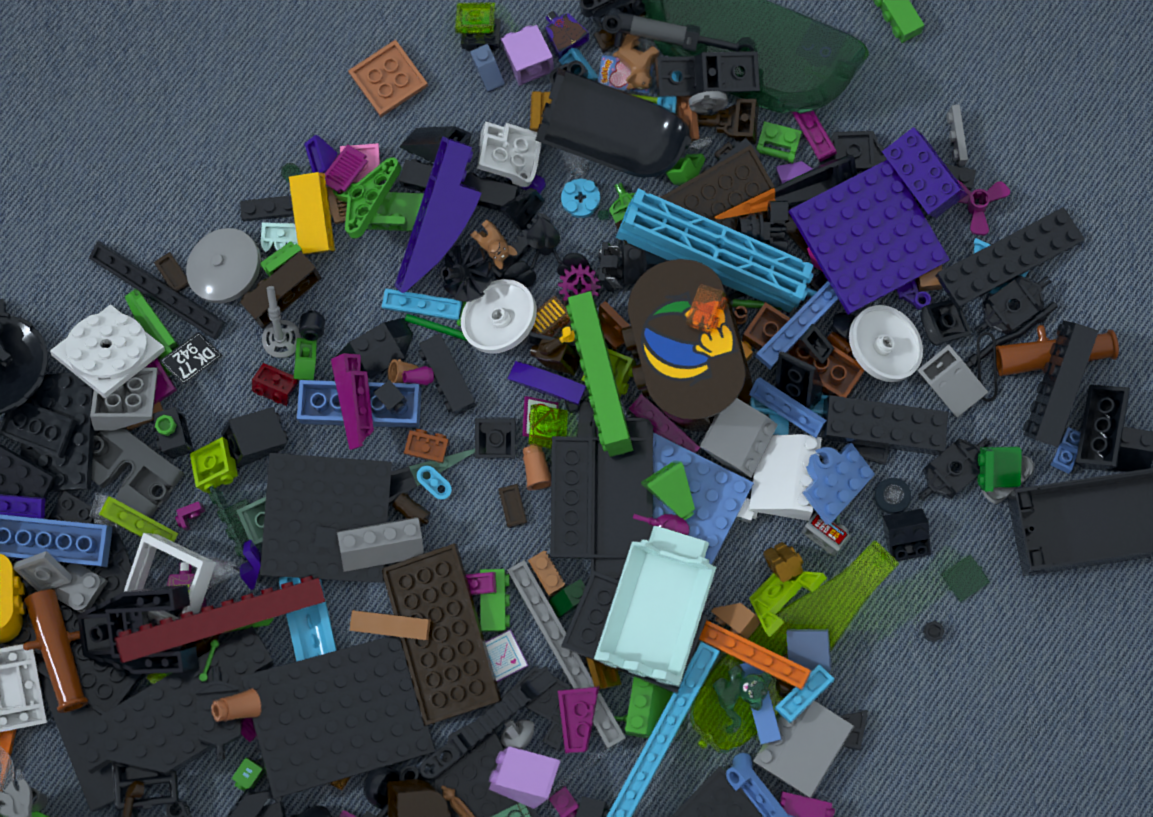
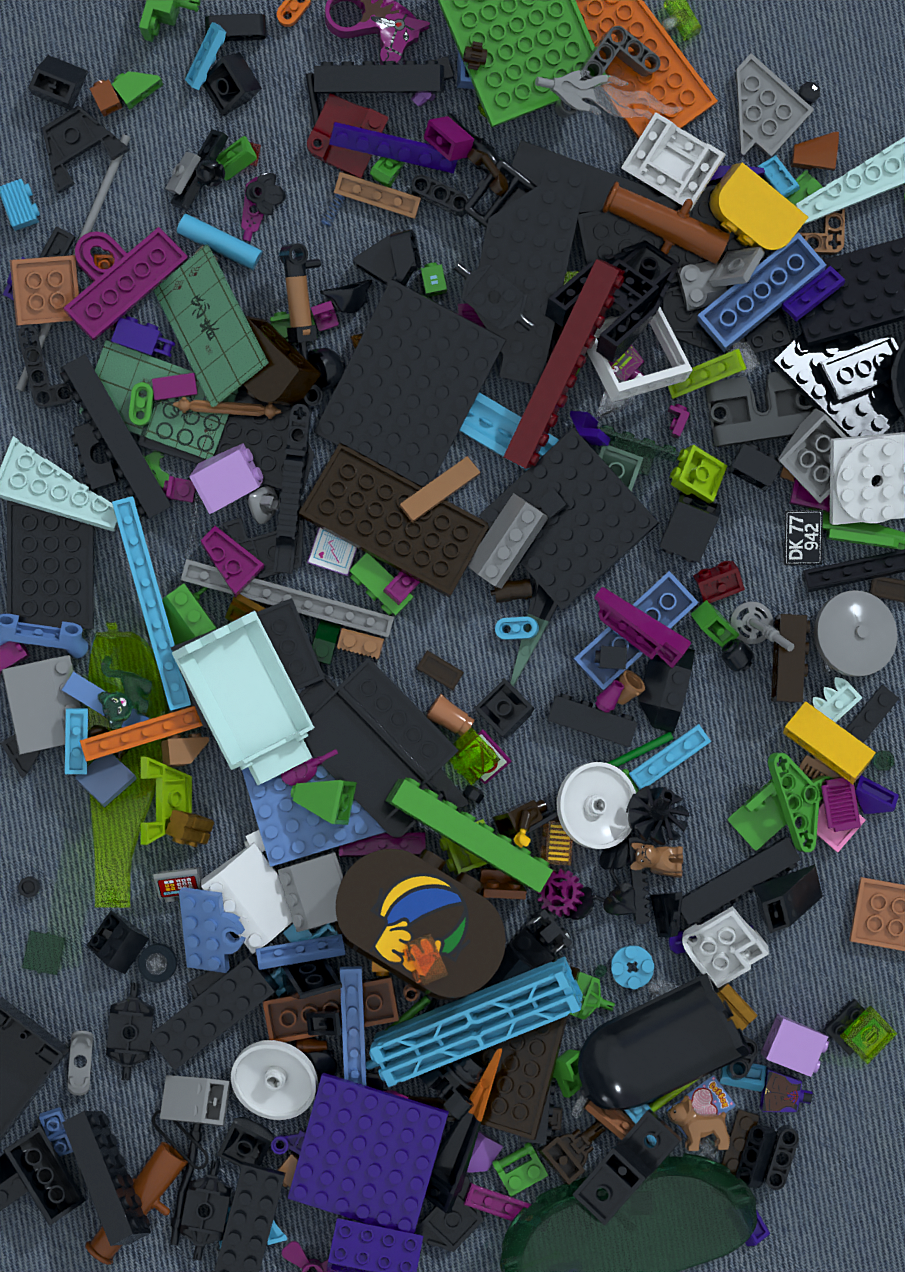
camera: 125 degrees right, 10 degrees up
(165, 425) = (761, 464): bright green tile -> none
(203, 676) = (534, 312): bright green hinge -> none
(237, 706) = (483, 315): nougat plant -> none
(280, 257) = (814, 682): bright green bracket -> none
(426, 446) = (550, 649): dark orange bracket -> none
(441, 214) = (721, 841): dark purple slope -> none
(487, 68) = (815, 1001): sand blue slope -> none
(547, 383) = (507, 790): dark purple slope -> none
(666, 32) = (677, 1183): piece -> none
(708, 100) = (606, 1143): light grey tile -> none
(999, 467) = (94, 1064): green bracket -> none

